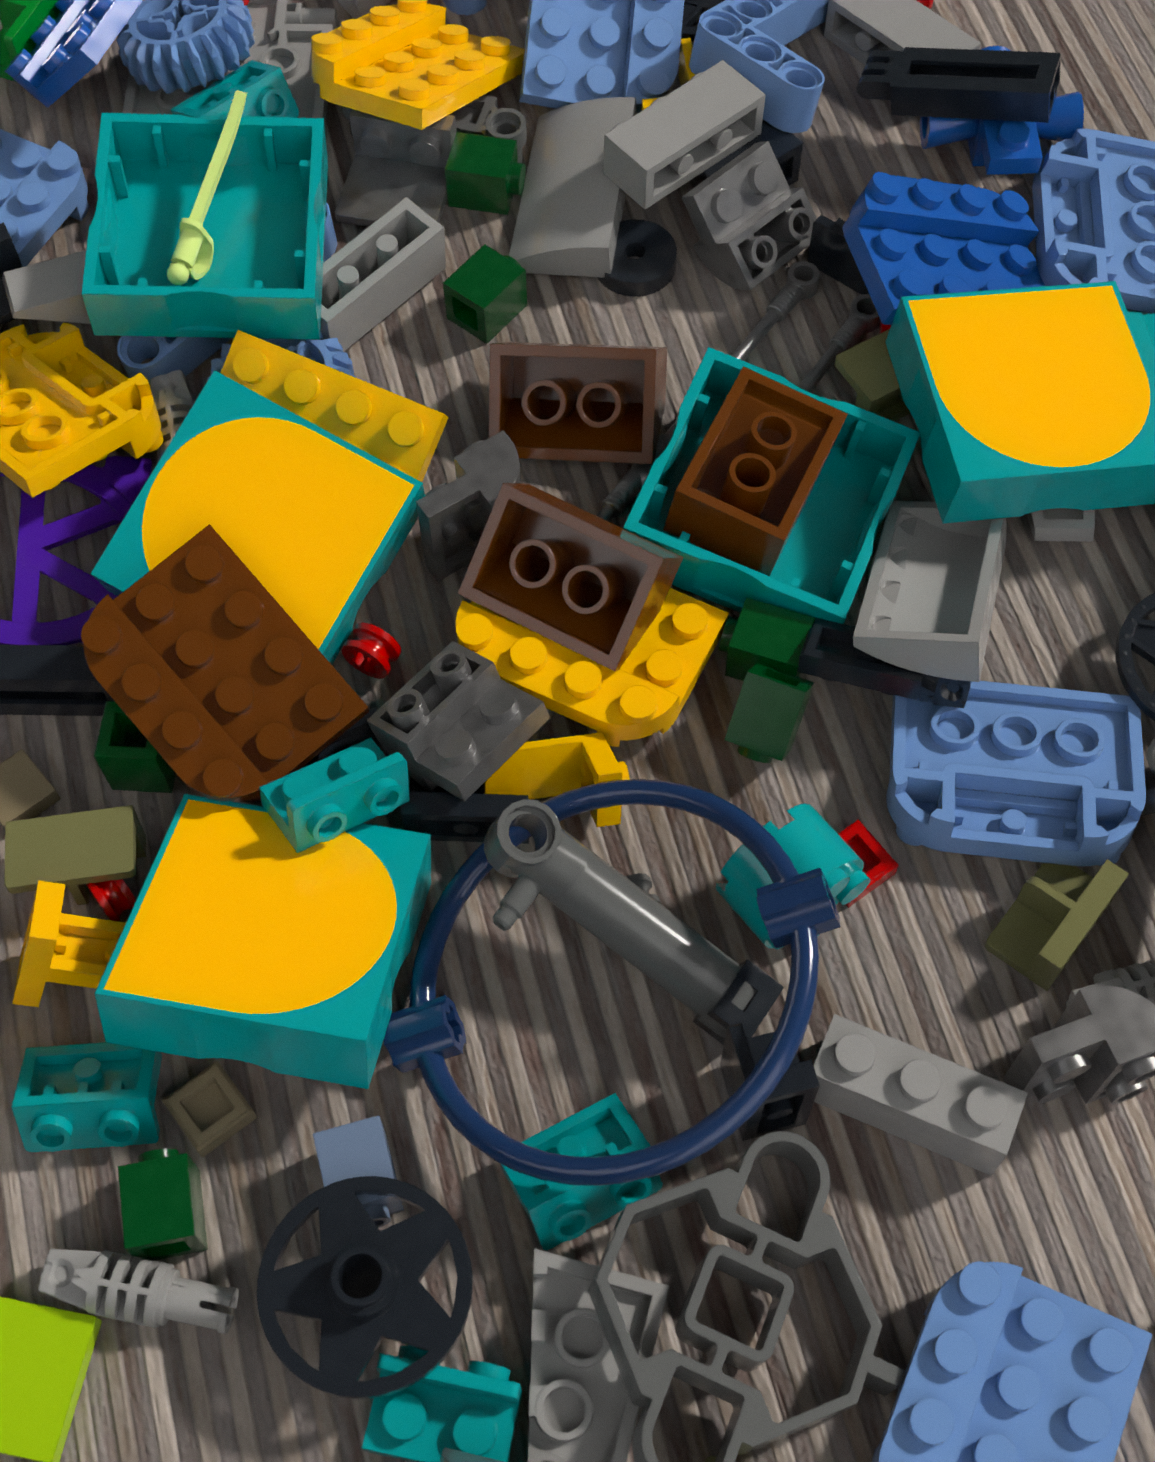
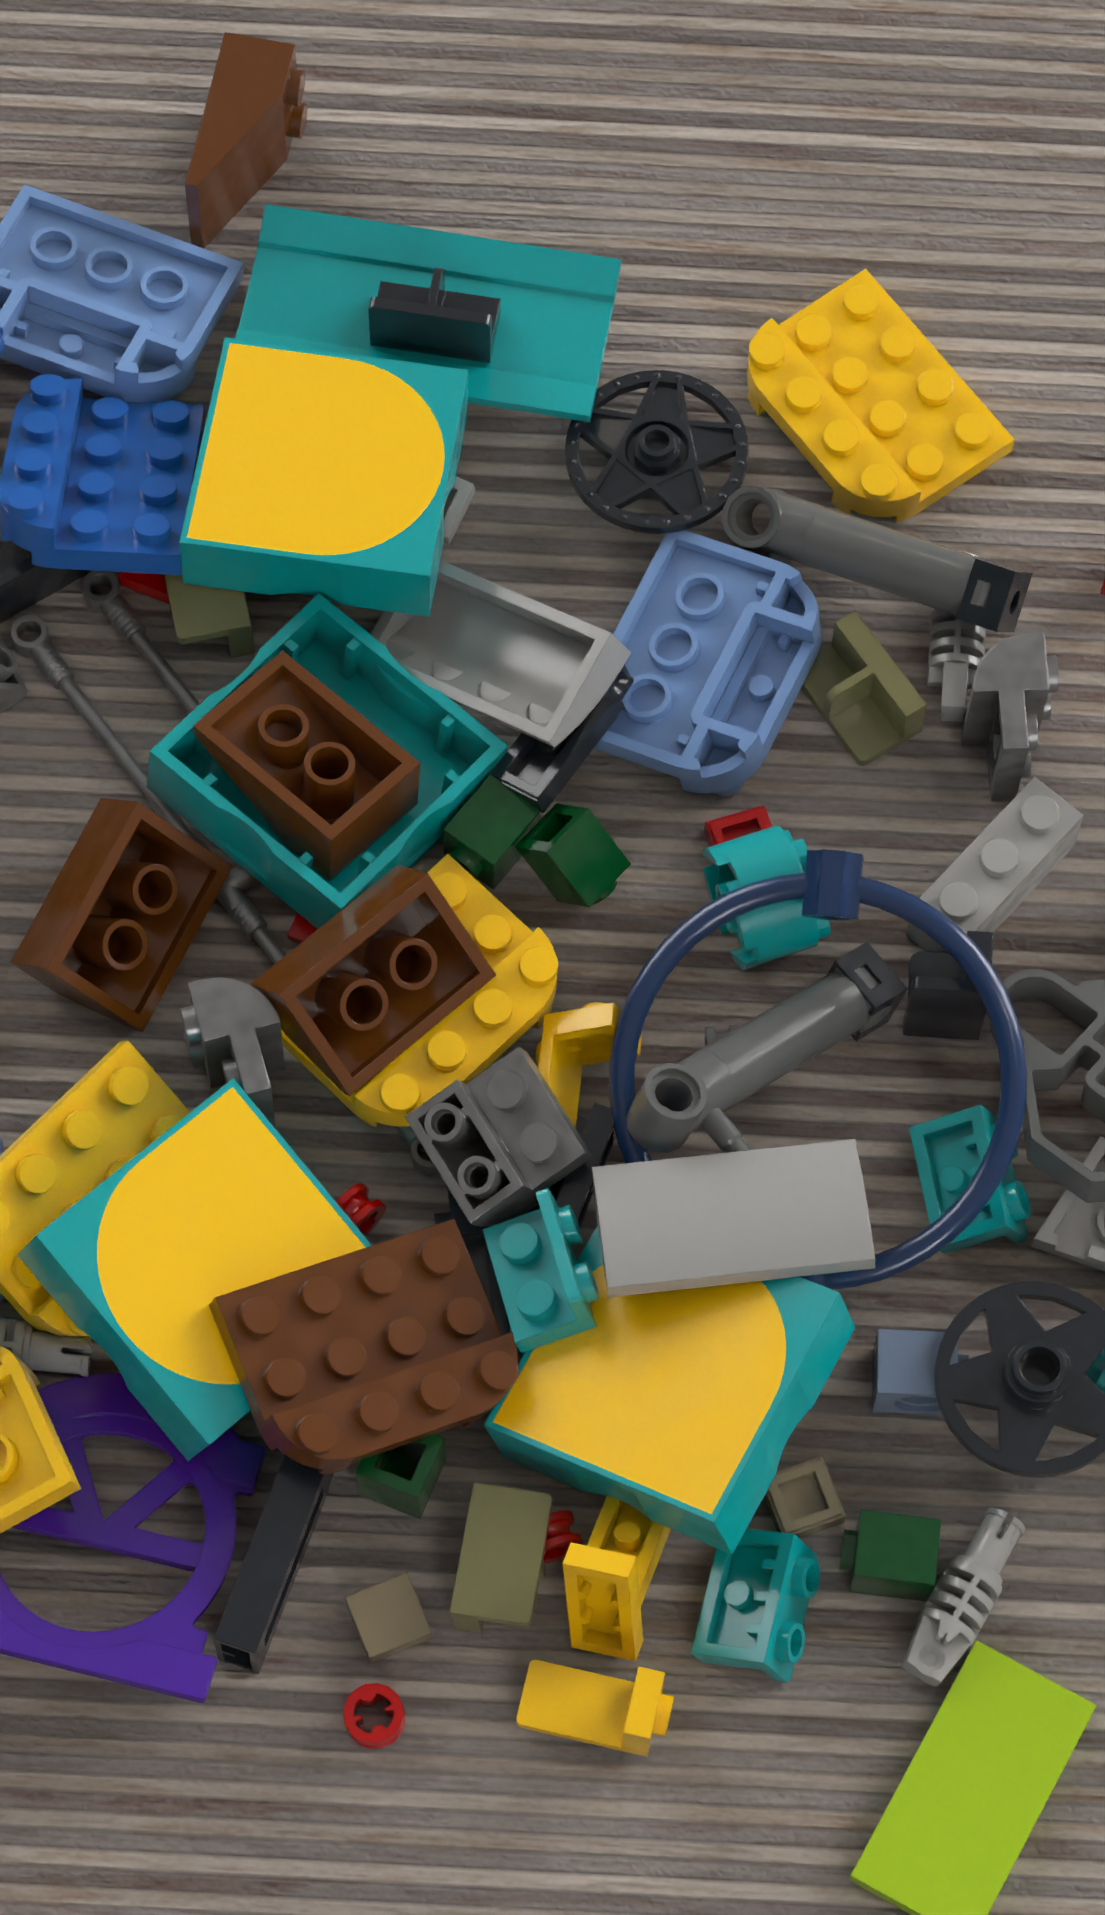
camera: 75 degrees left, 5 degrees up
(426, 932) = (732, 1218): none -> light grey slope

